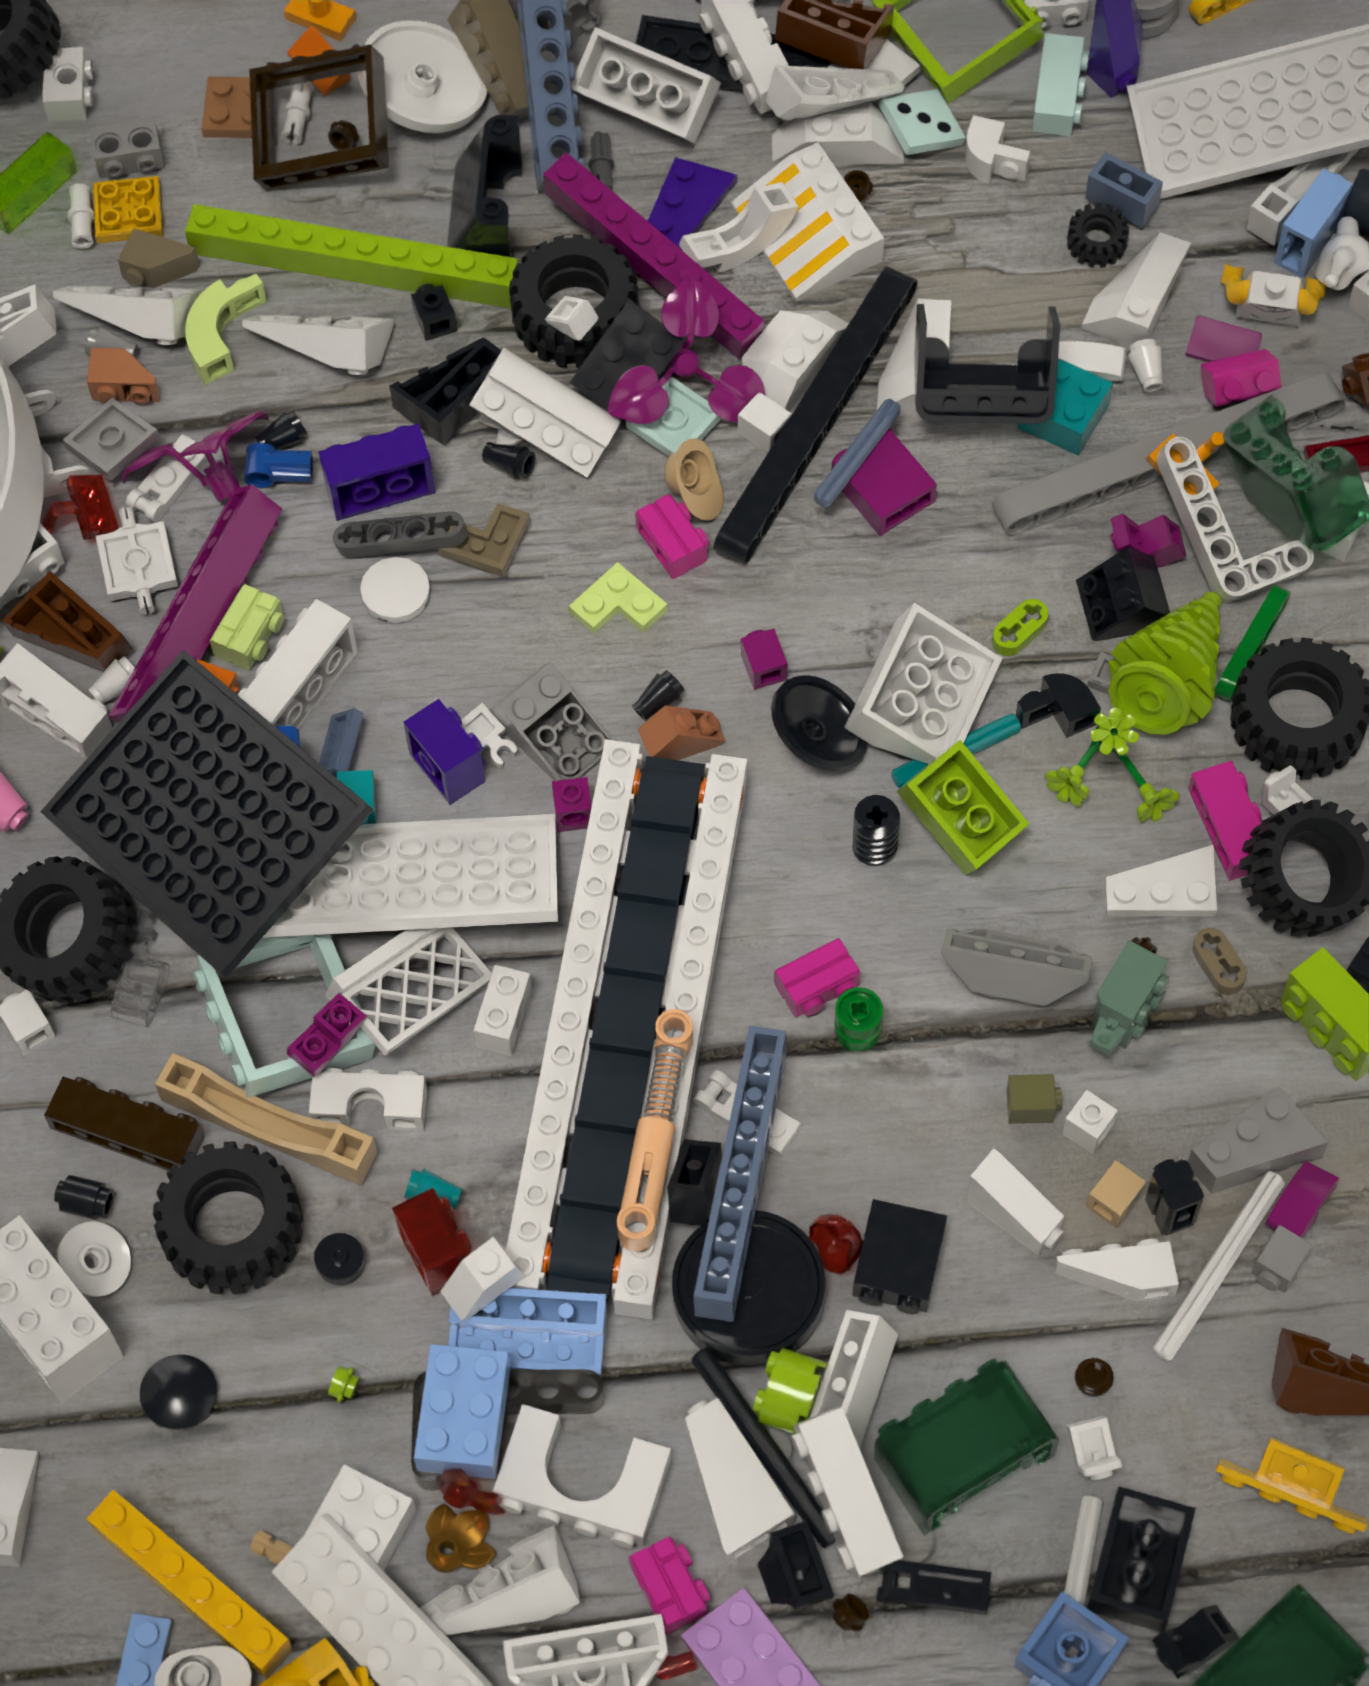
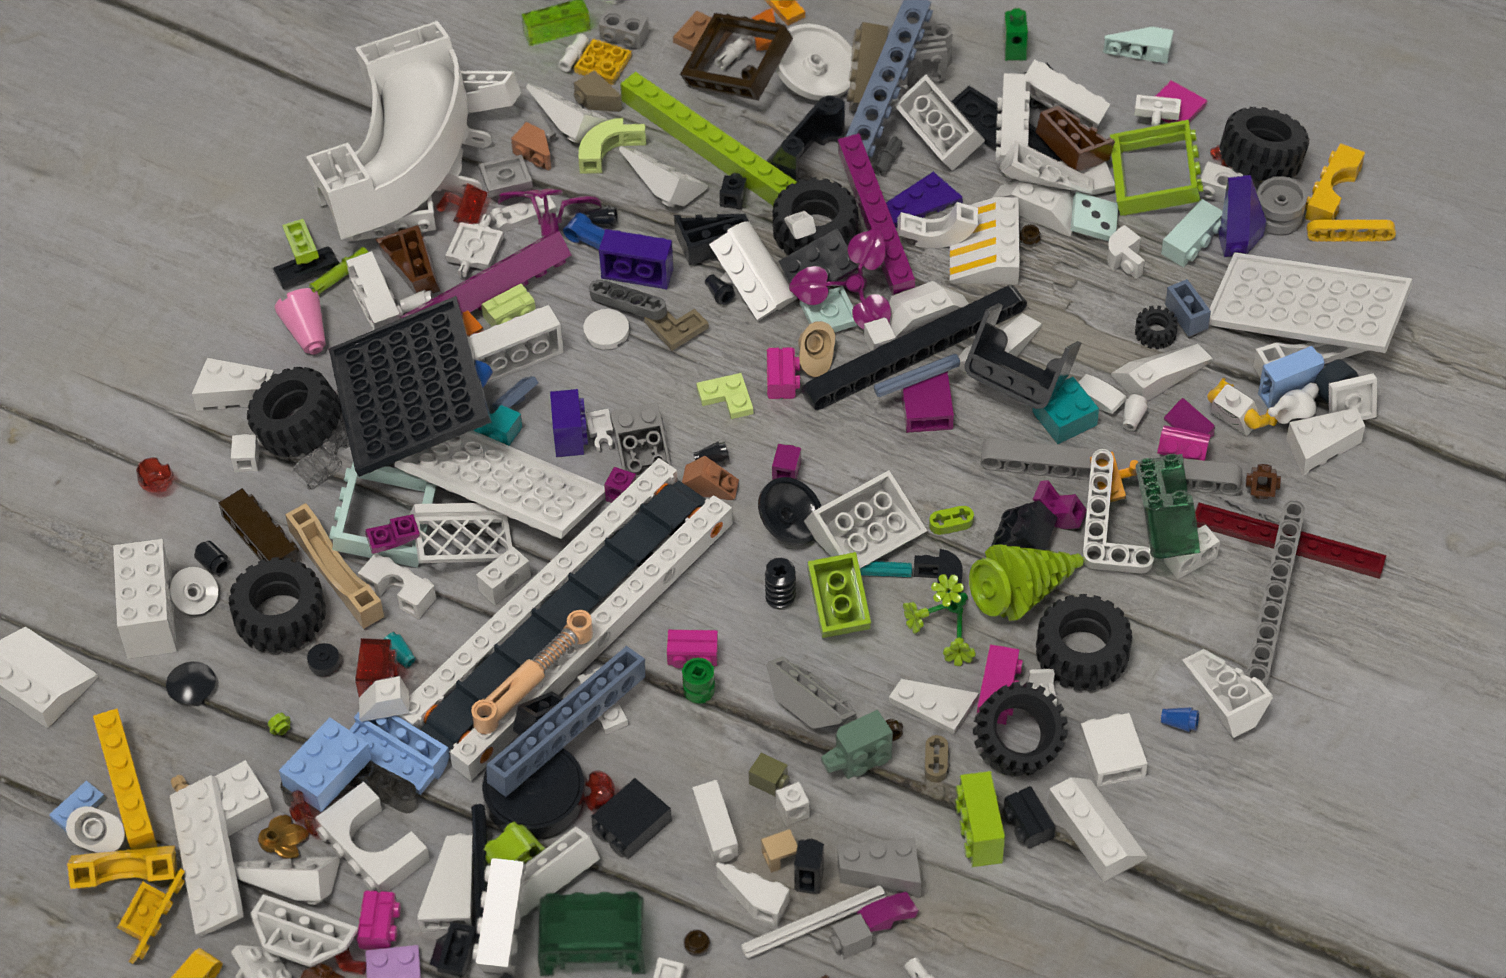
camera: 30 degrees right, 10 degrees down
(1253, 640) = (1099, 586): green beam -> none

